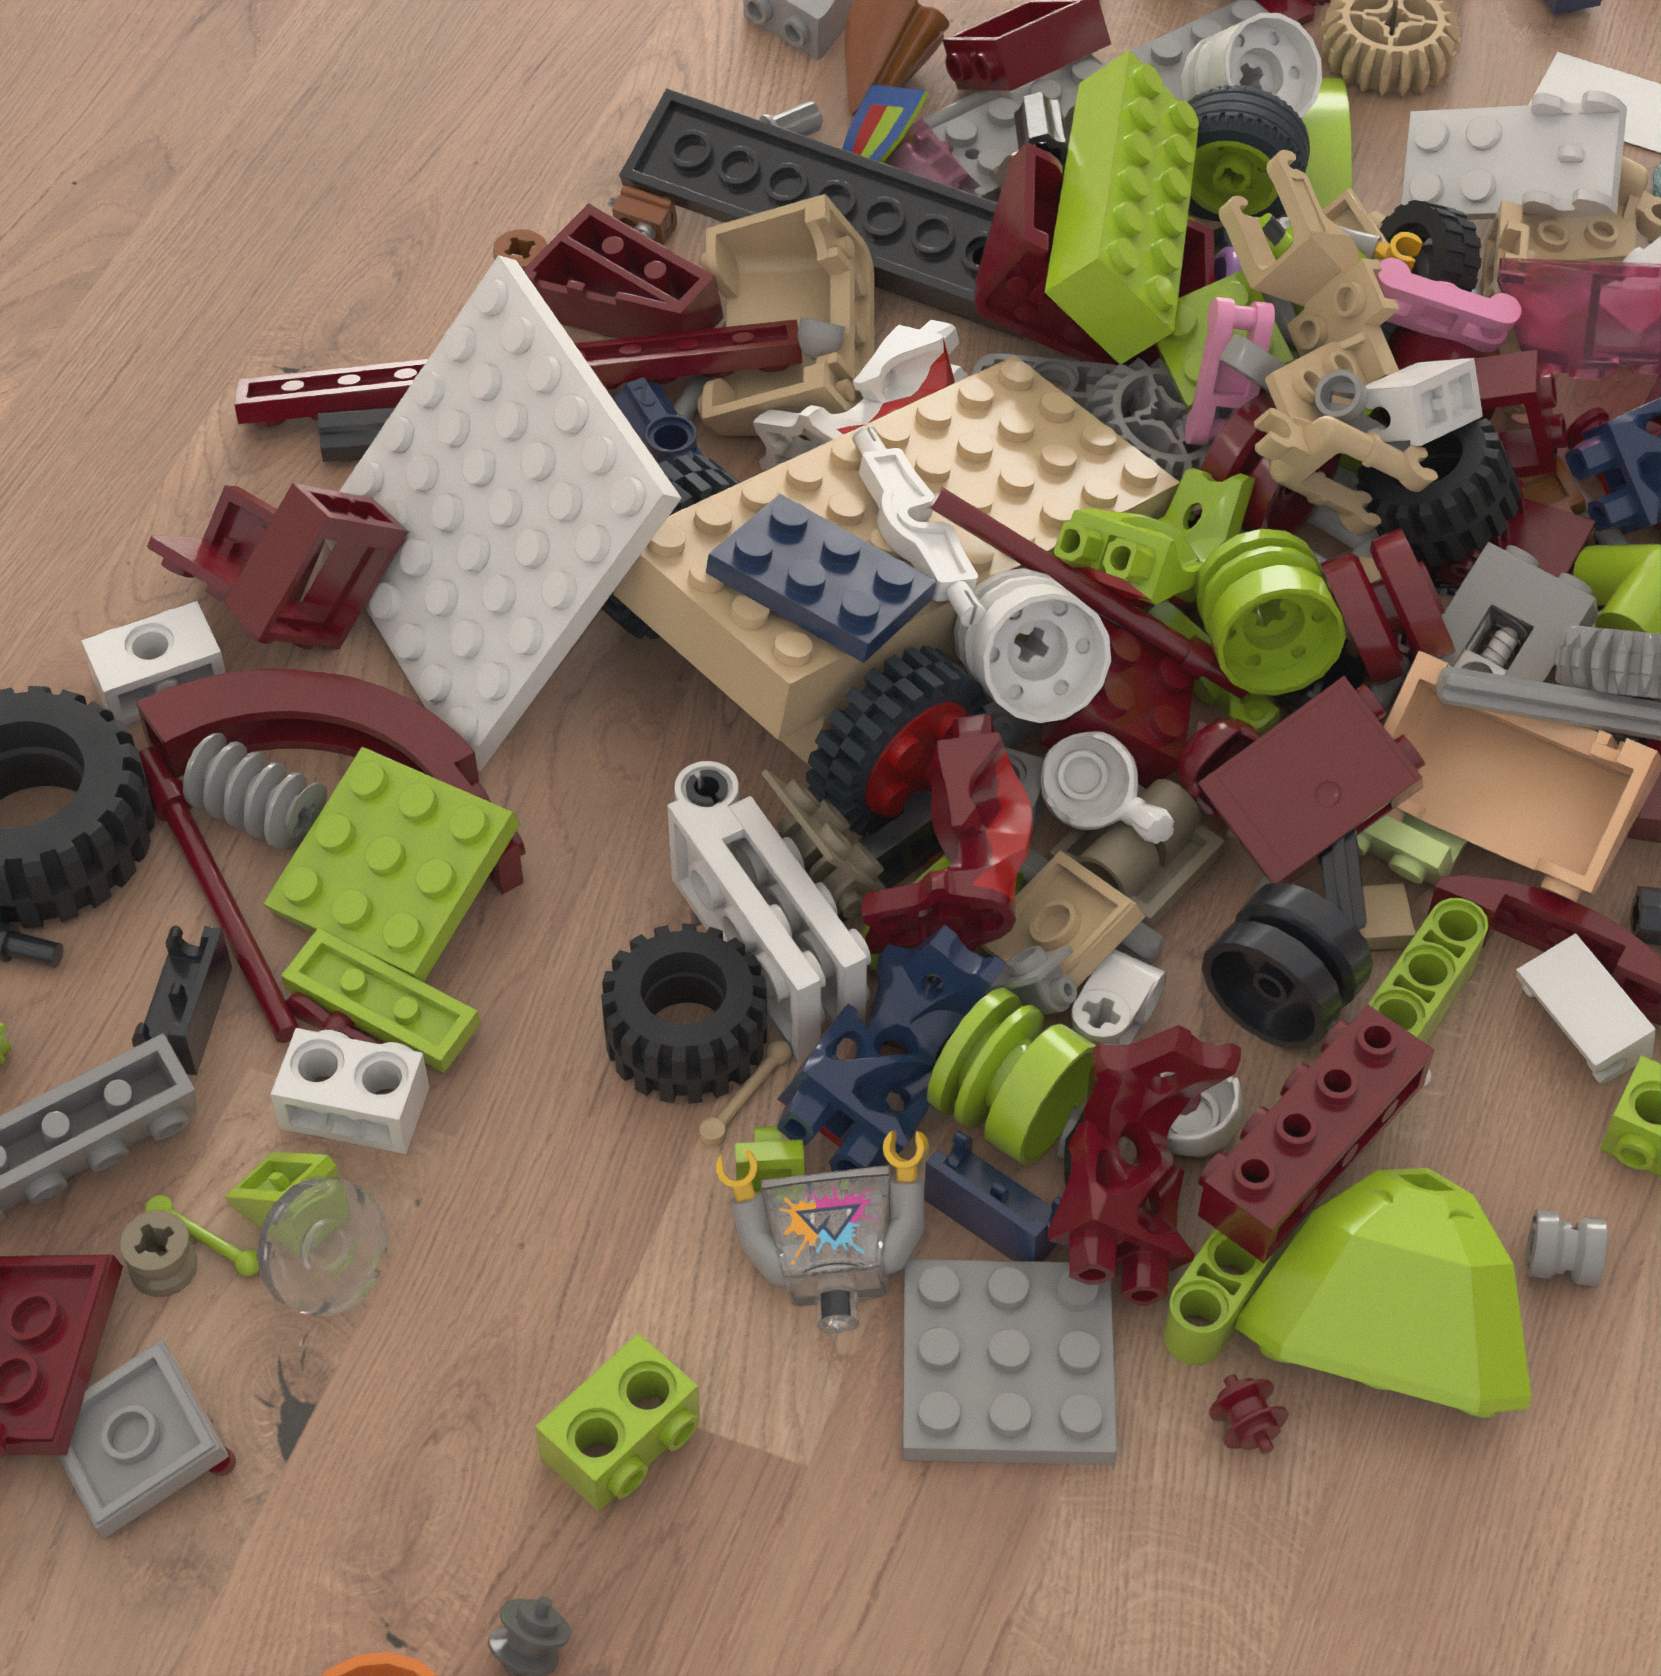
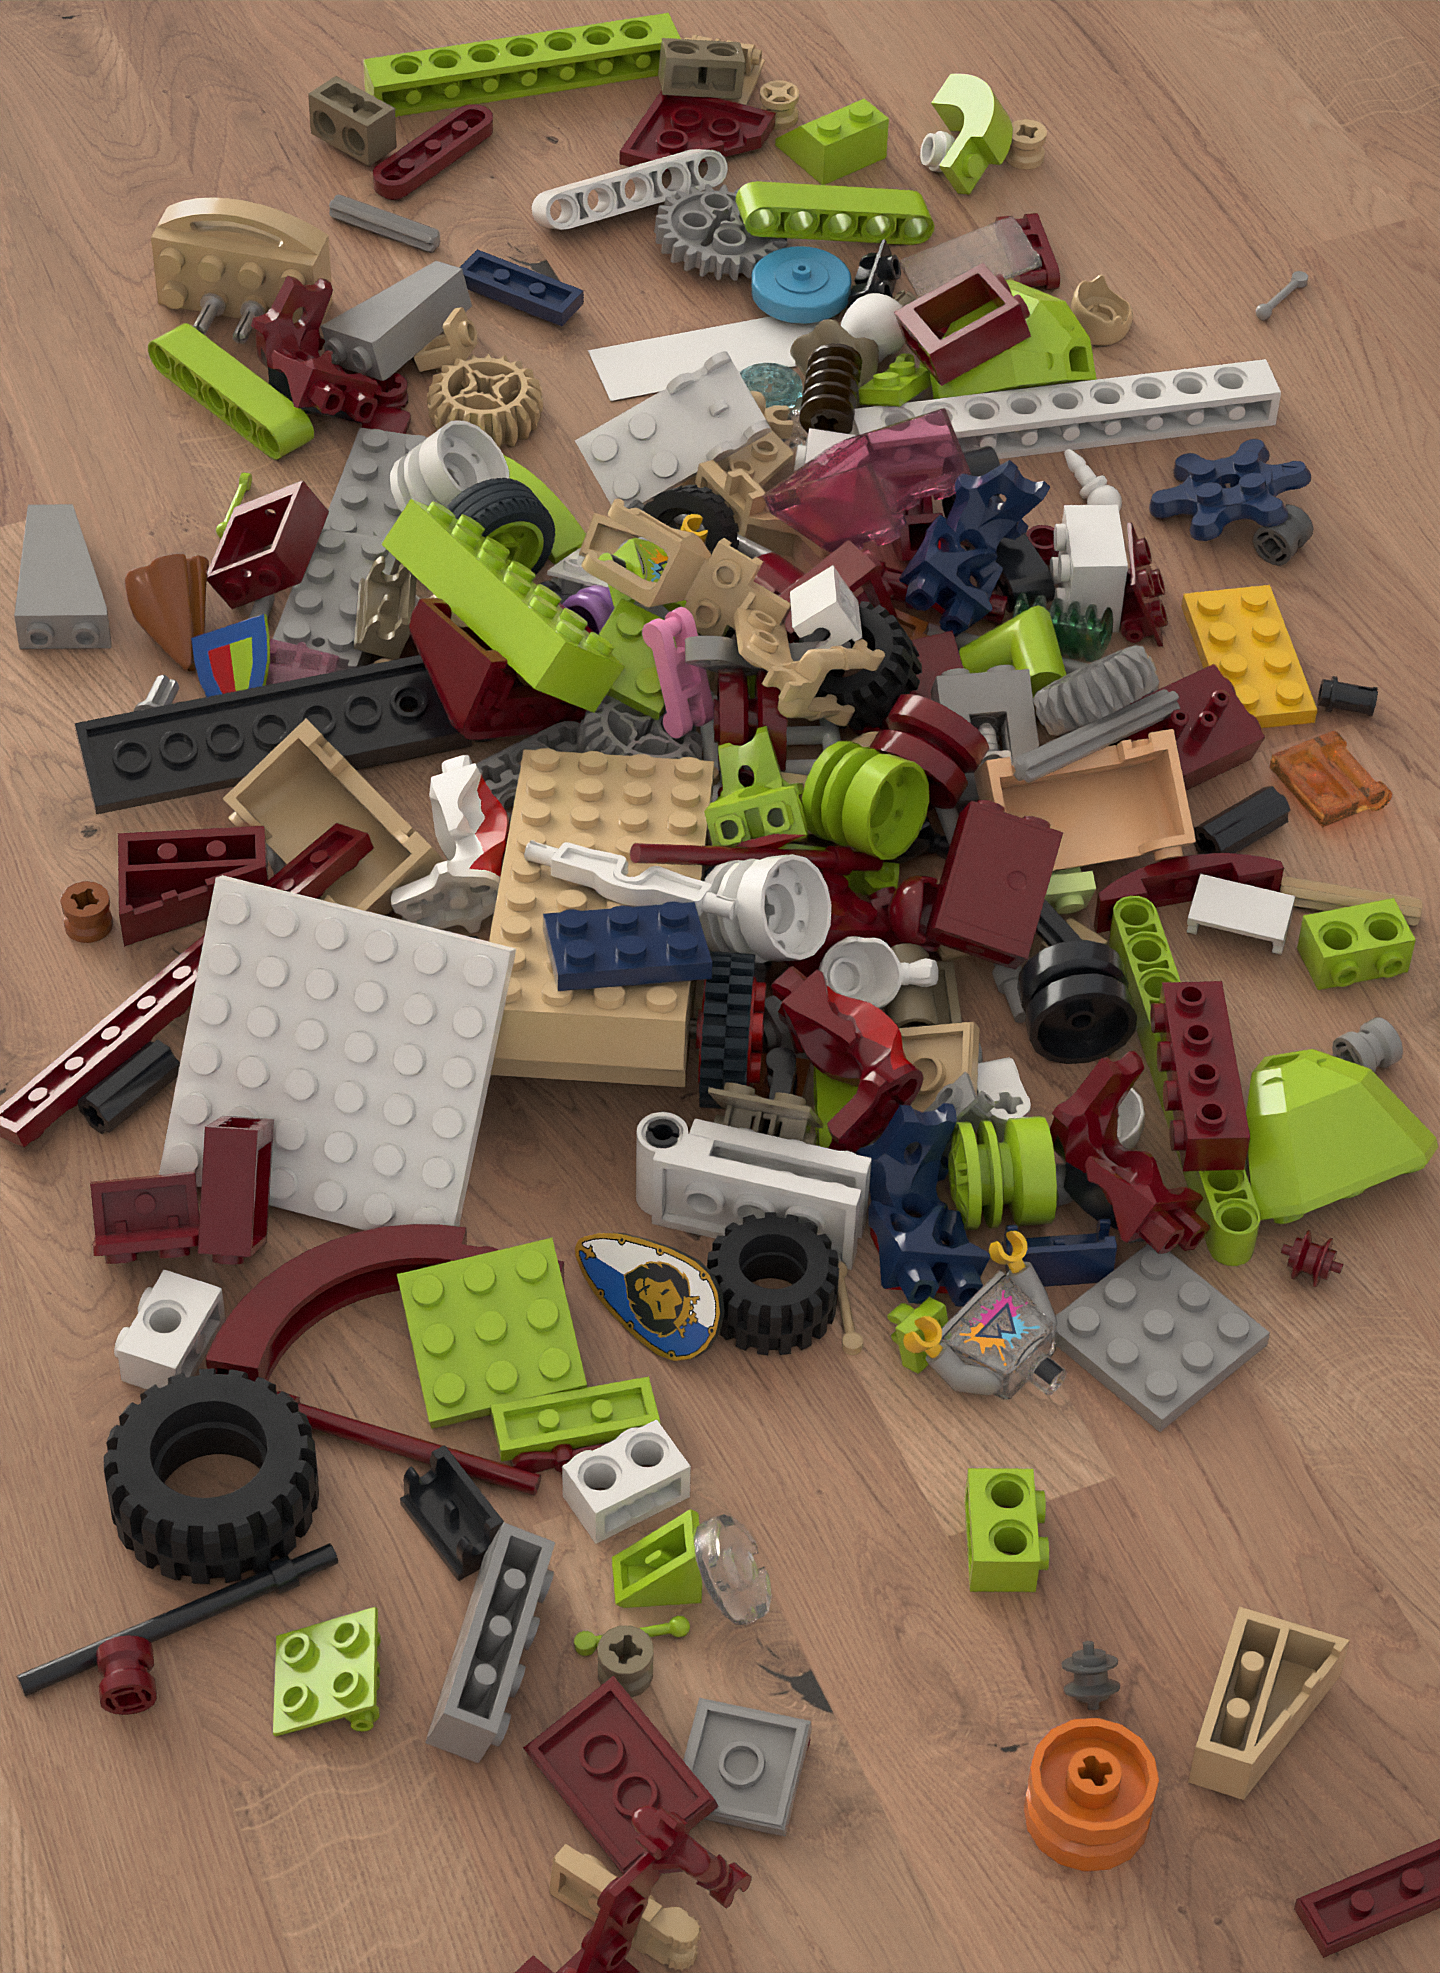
camera: 45 degrees left, 5 degrees down
(252, 793) = (346, 1359): light grey piece -> none
(571, 938) = (654, 1292): none -> shield
(646, 213) = (129, 819): dark orange piece -> none
(819, 337) = (378, 821): light grey hinge -> none
(1042, 125) = (384, 593): axle -> none
(1345, 385) = (790, 626): light grey hinge -> none
(1446, 310) = (777, 546): bright pink plate -> none

